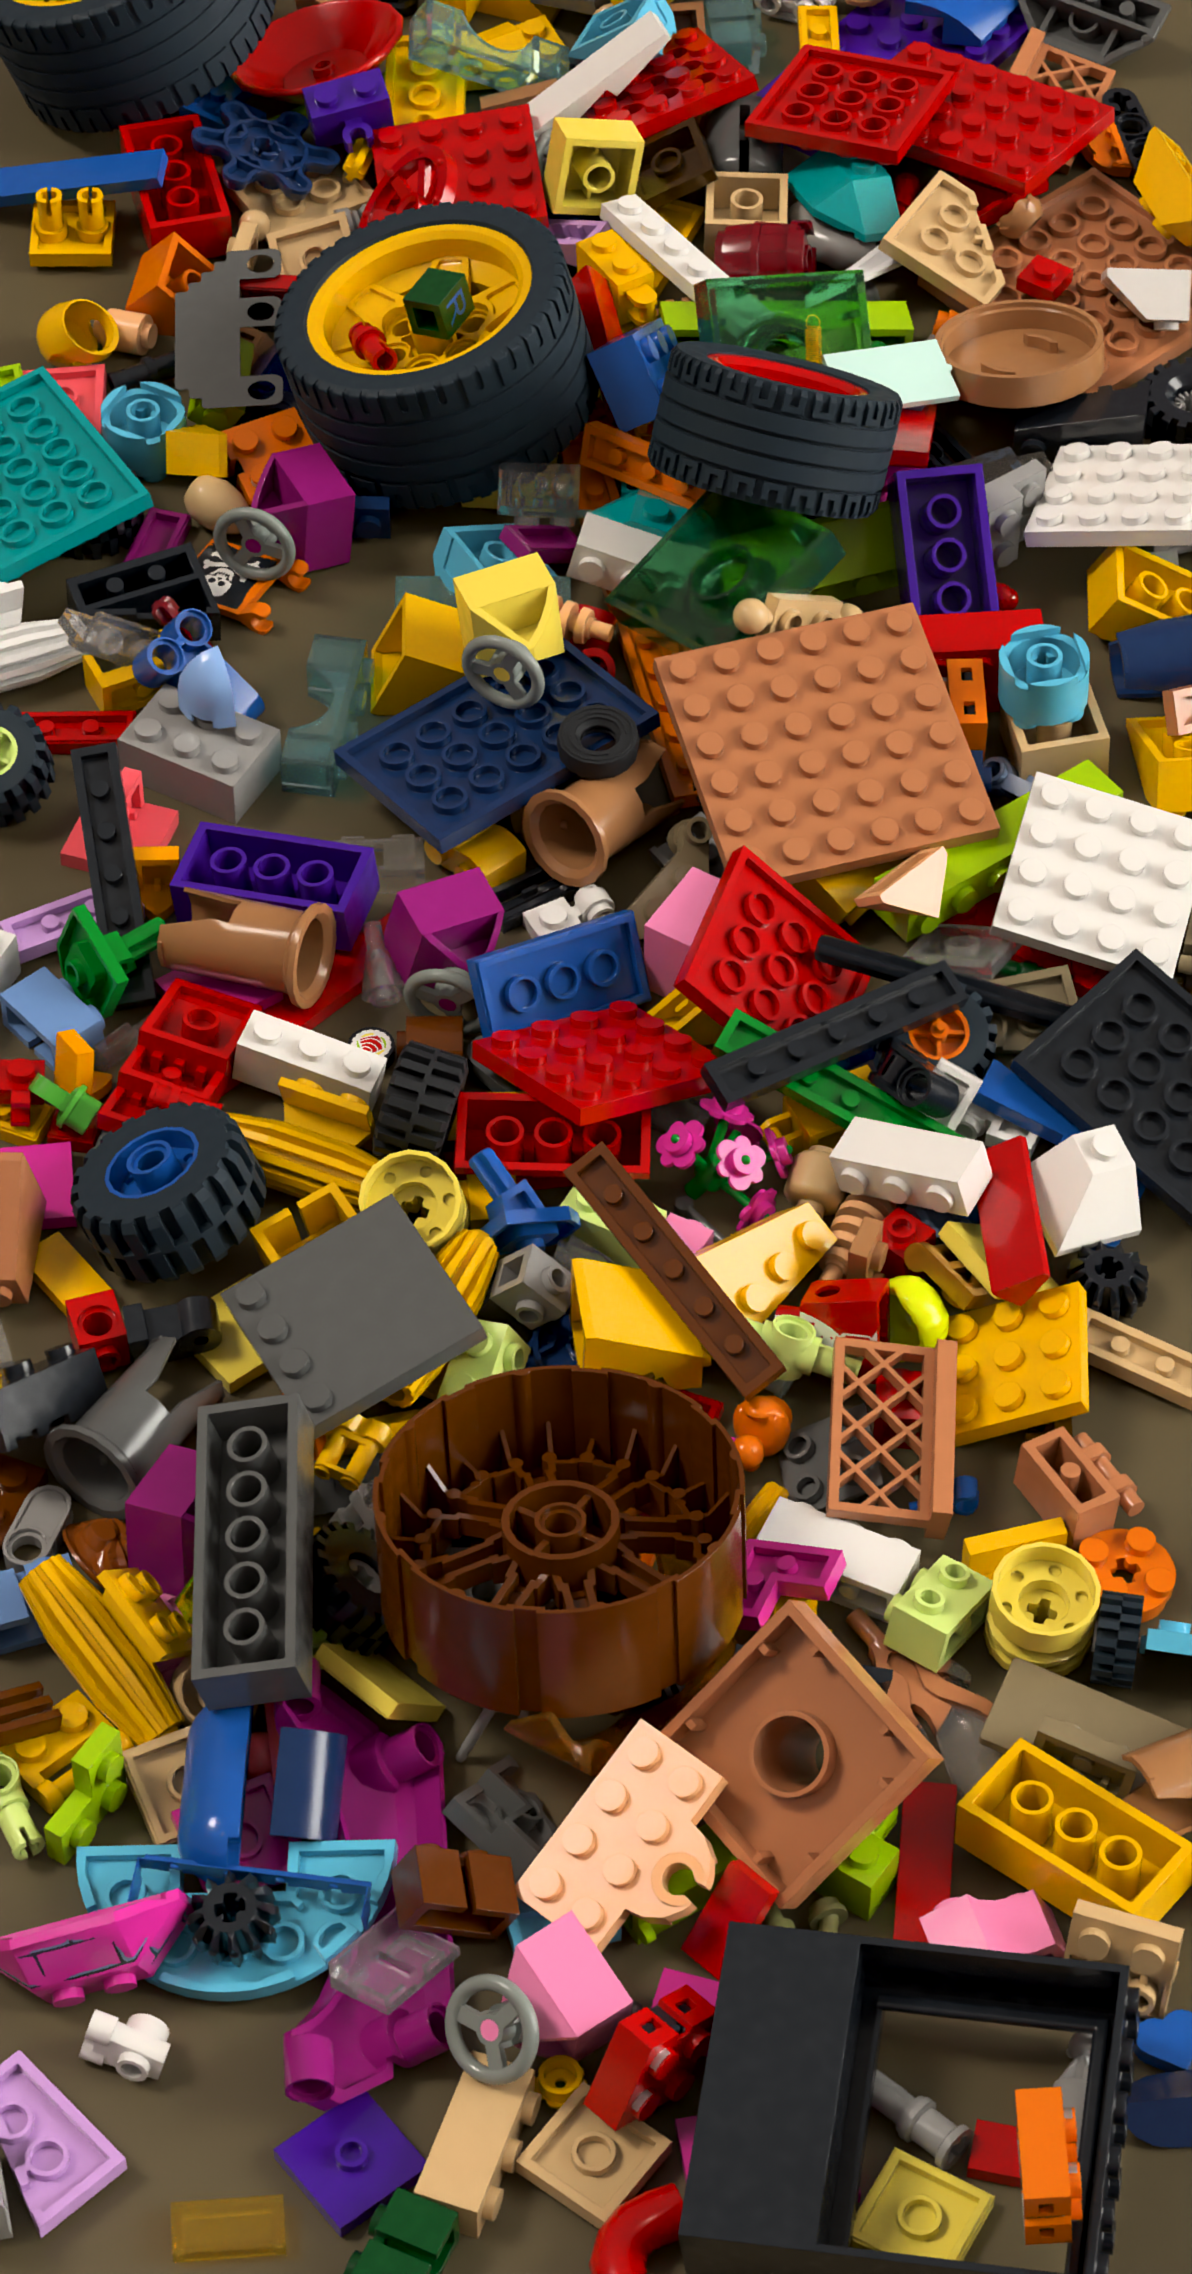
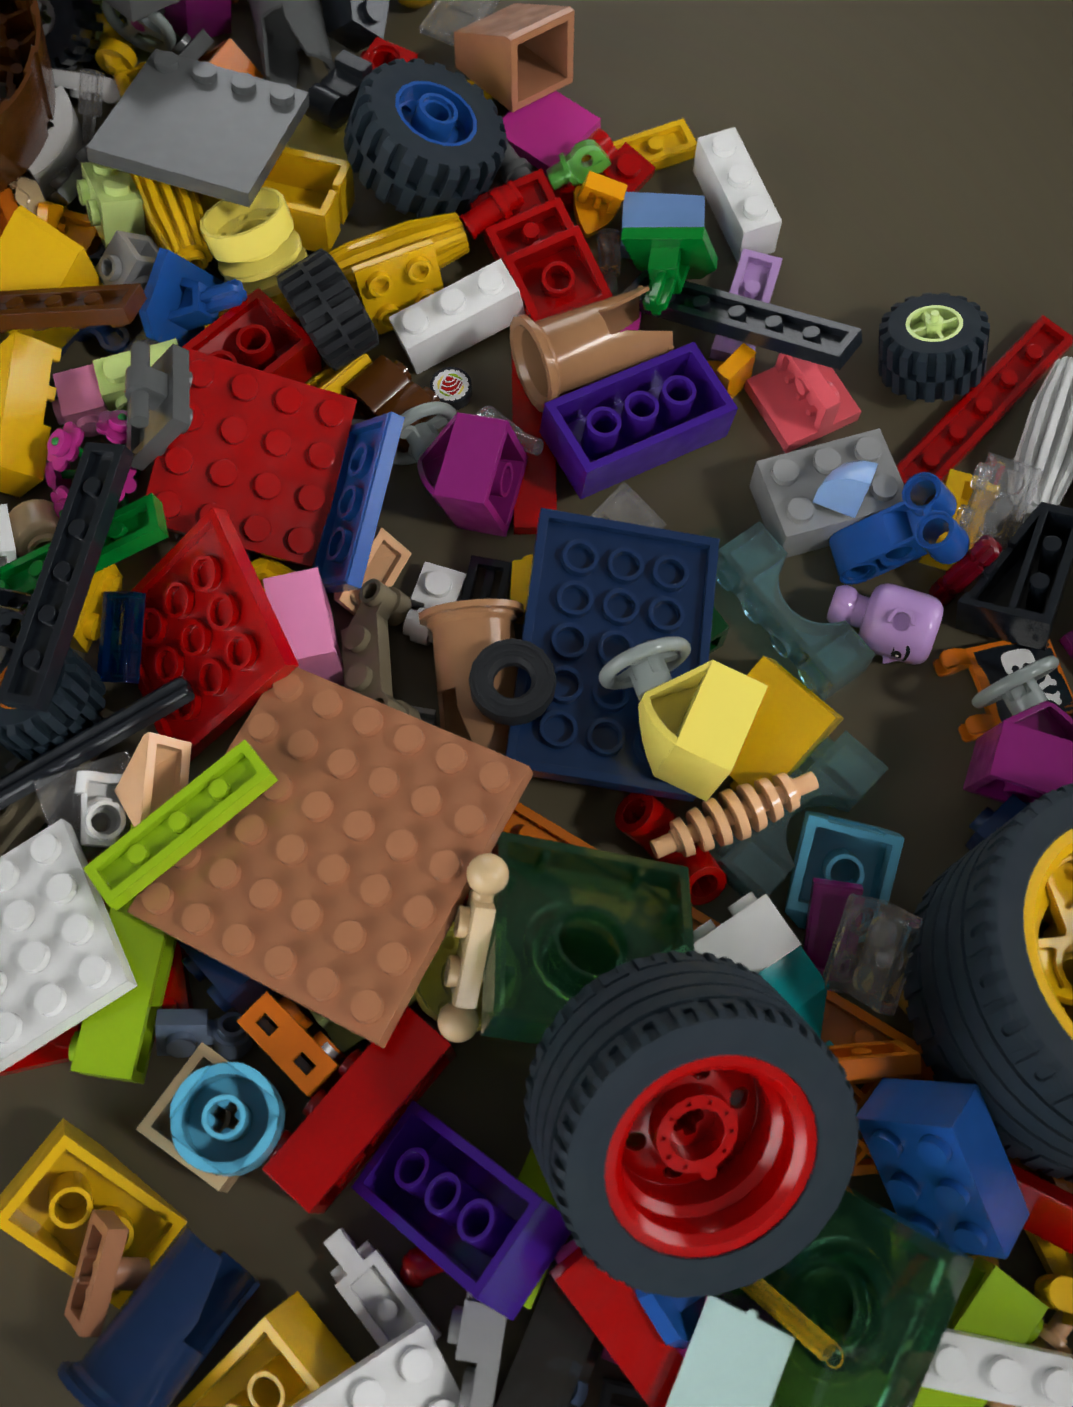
camera: 135 degrees right, 20 degrees up
(271, 652) = (892, 622): none -> lavender piece
(648, 1084) = (156, 401): none -> dark grey plate
(914, 817) = (179, 825): none -> lime plate
(960, 921) = (99, 798): none -> white plate
(1043, 586) = (374, 1290): none -> white hinge

